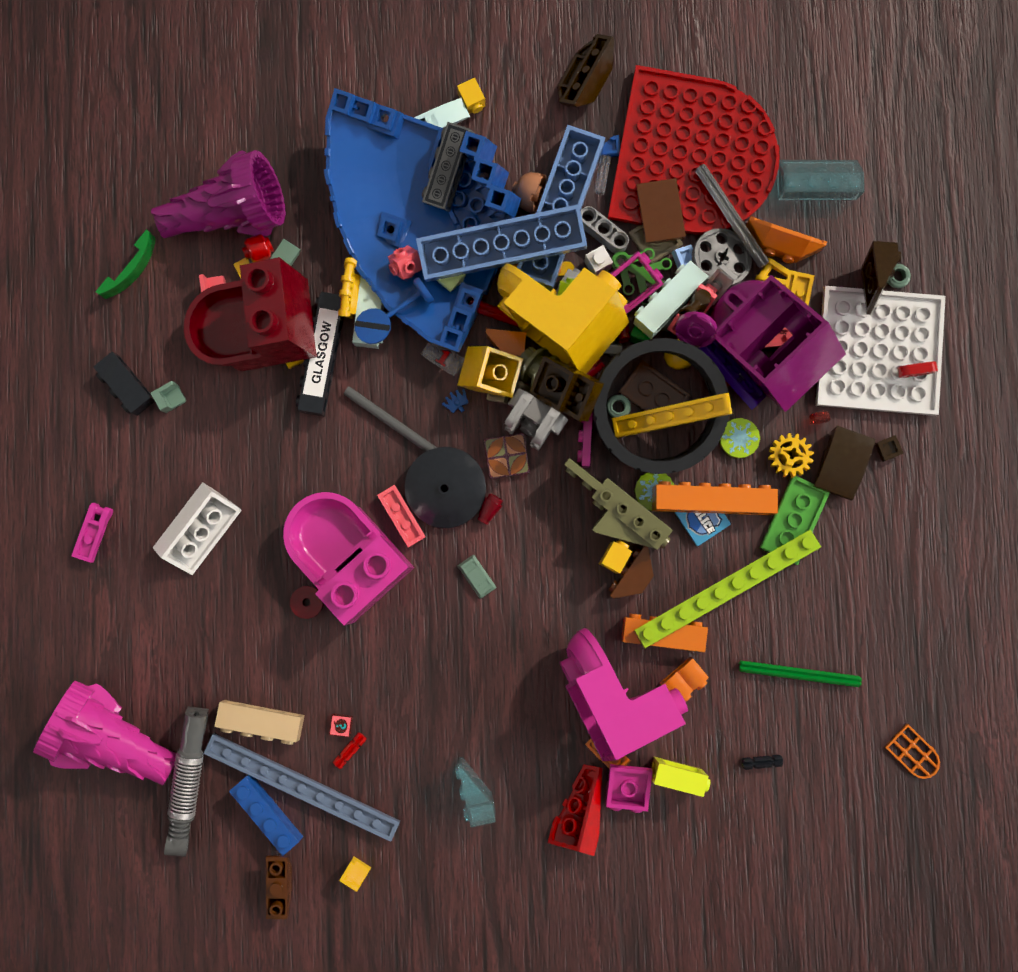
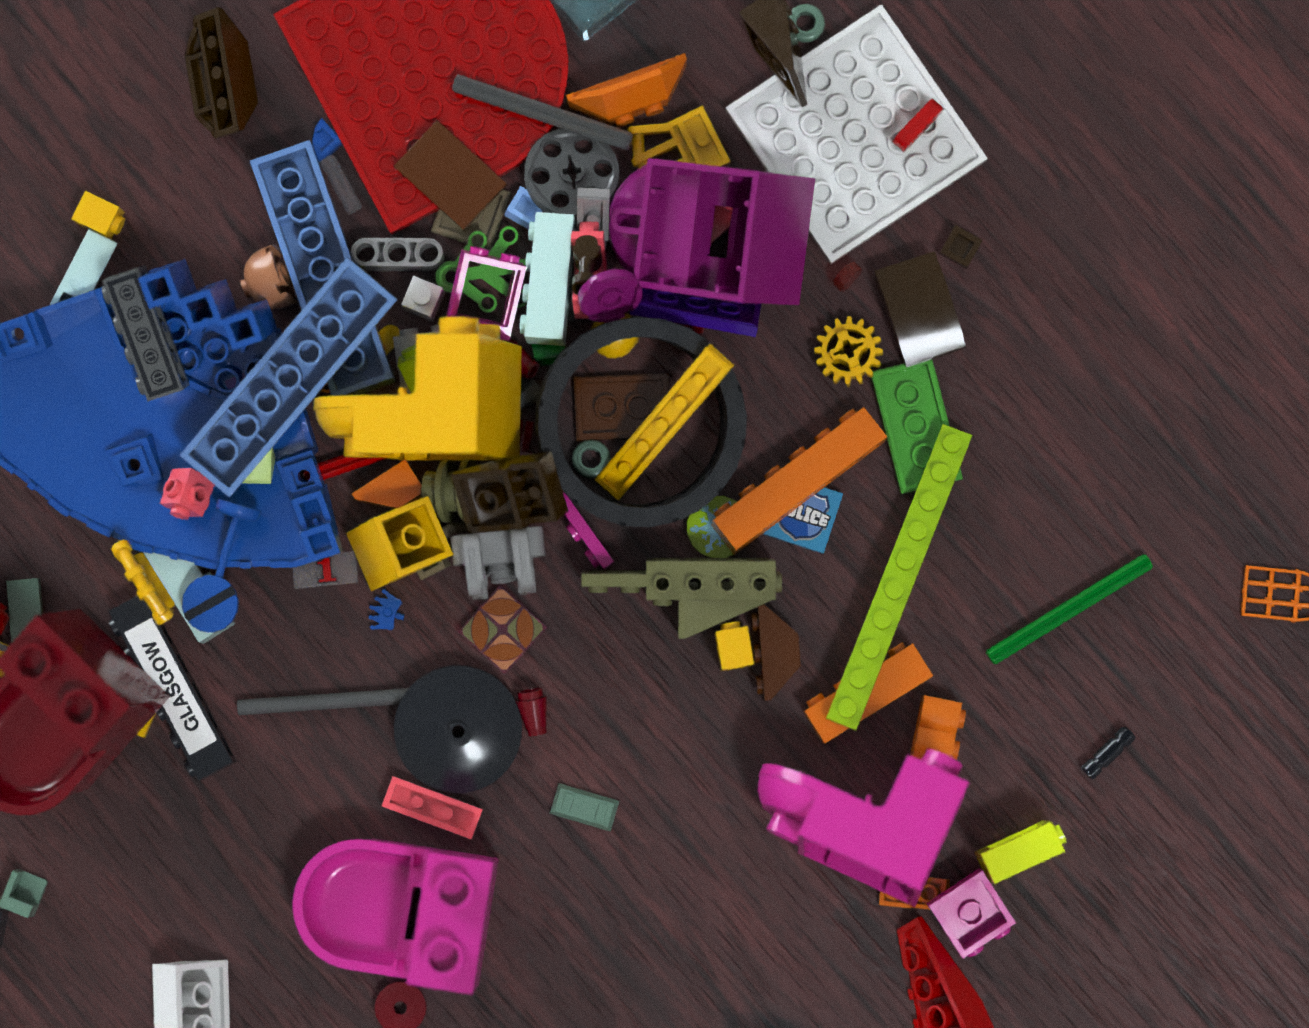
camera: 40 degrees left, 0 degrees up
(740, 438) = (769, 379): lime tile -> none

